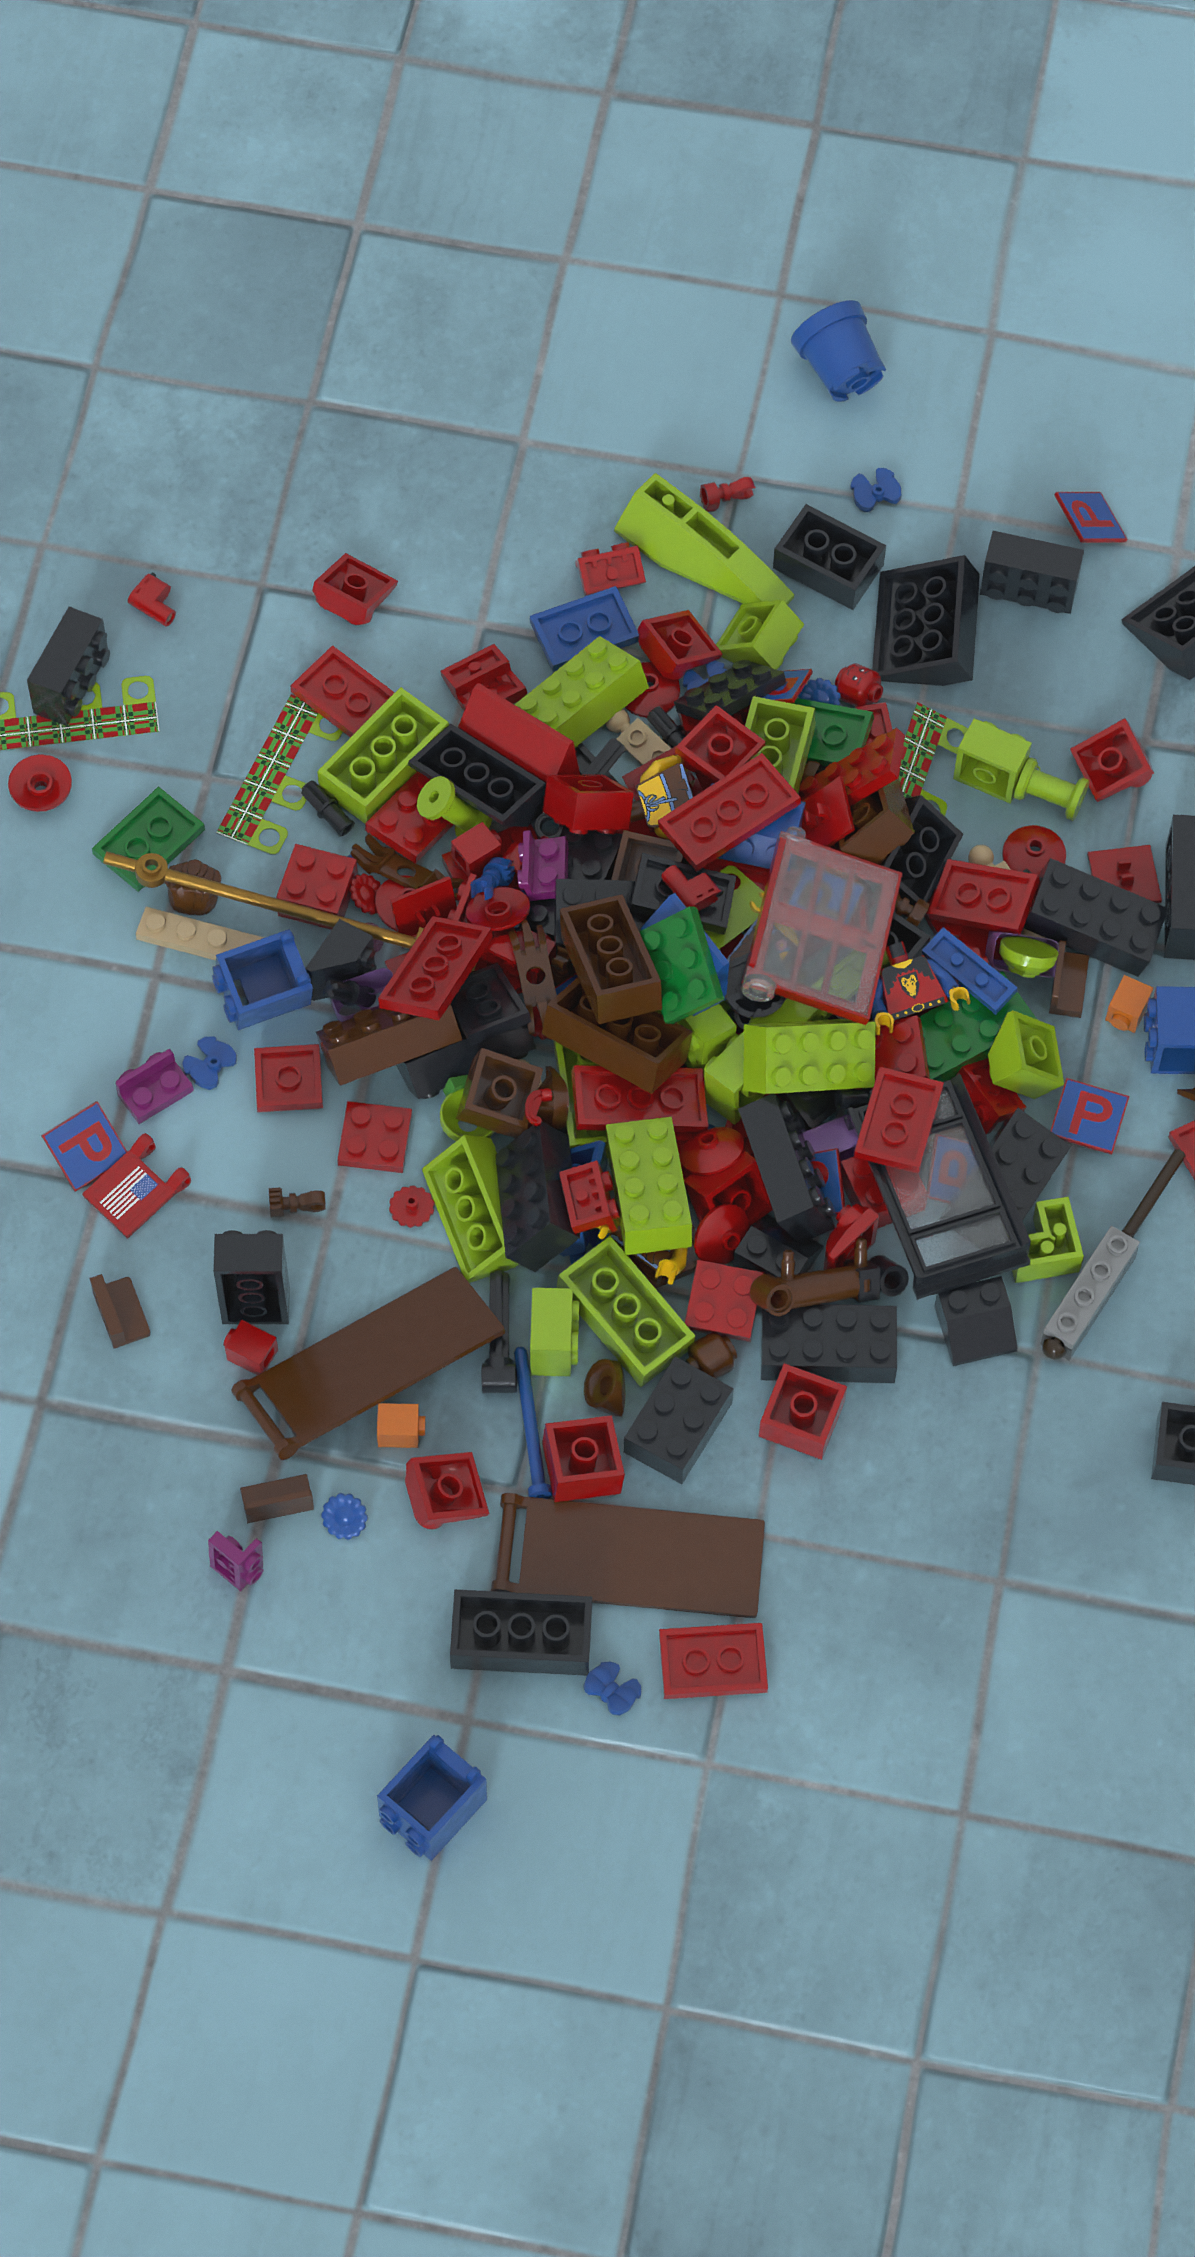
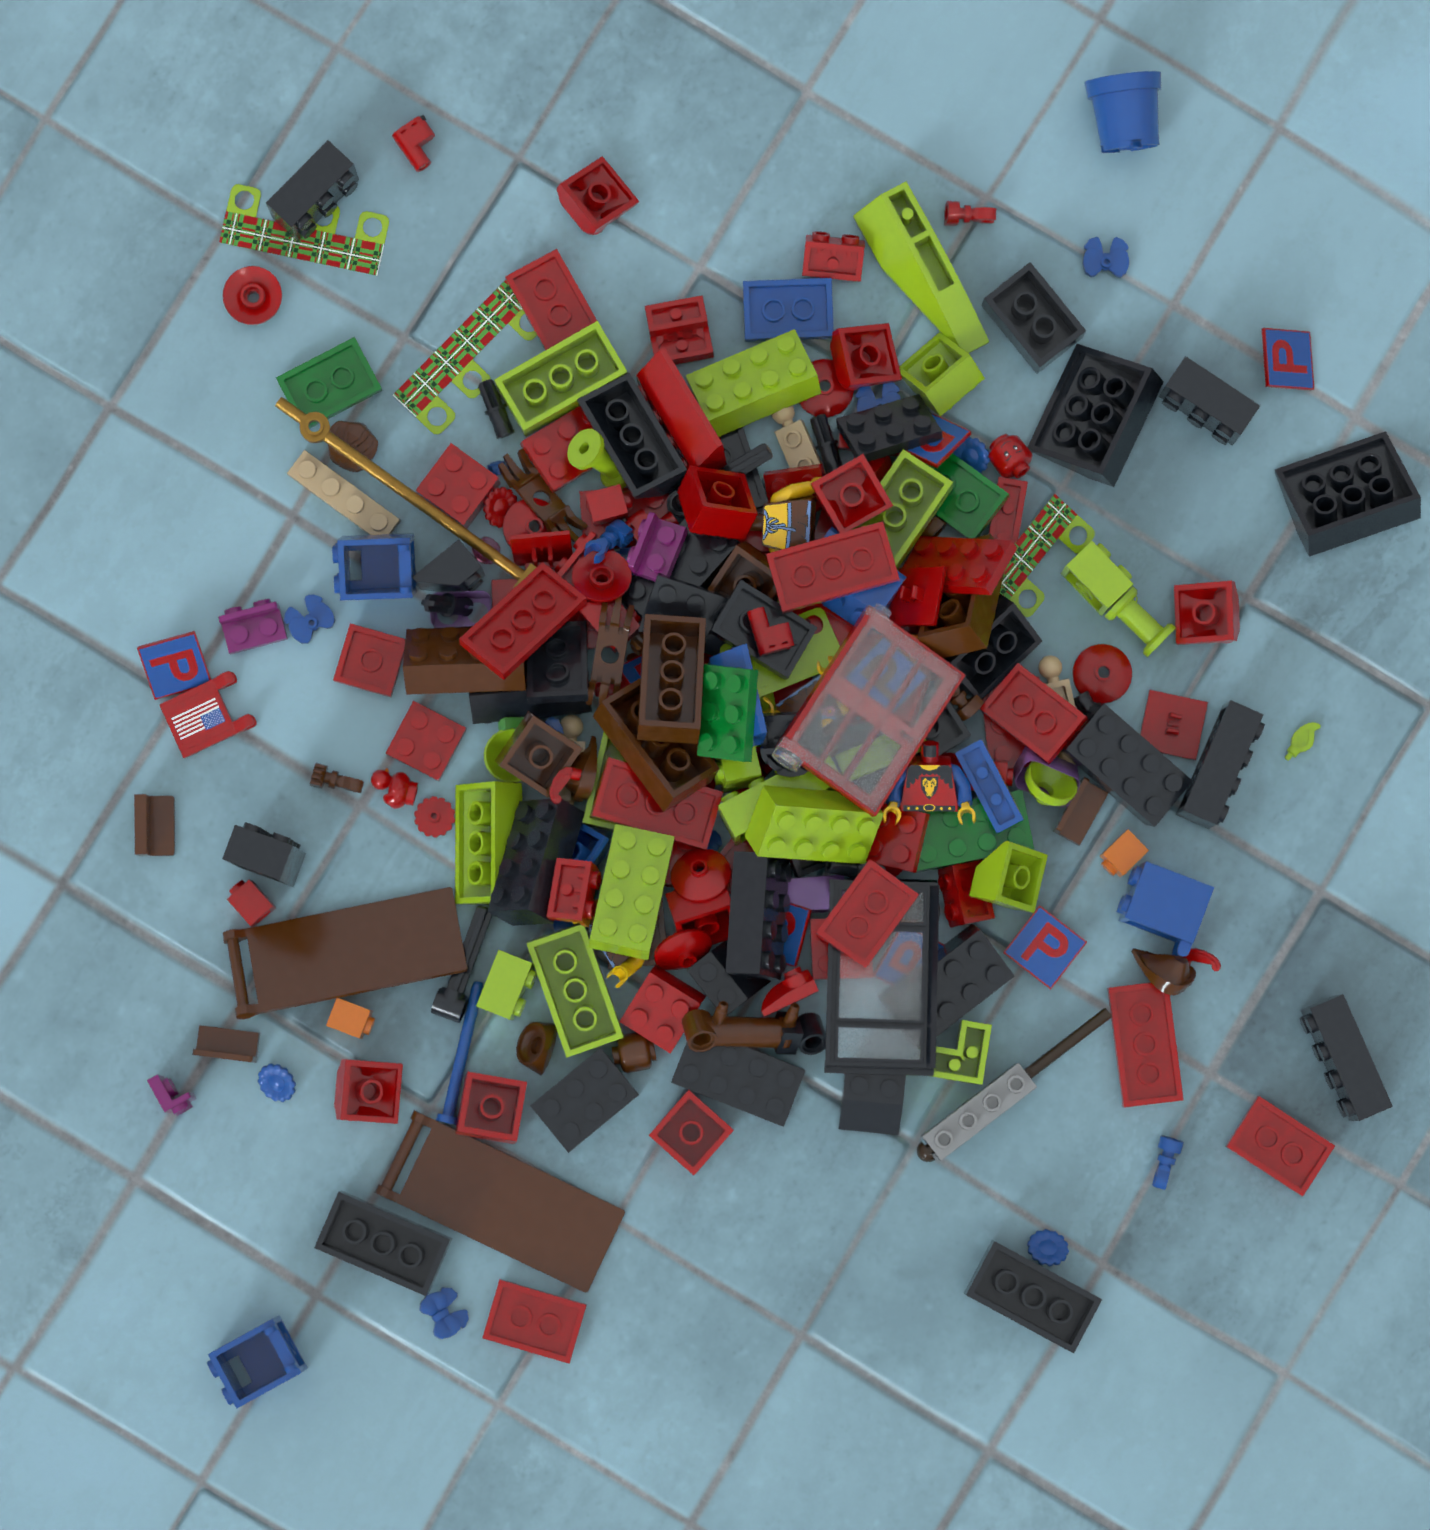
camera: 20 degrees right, 20 degrees up
(366, 1186) = (400, 790): none -> red animal

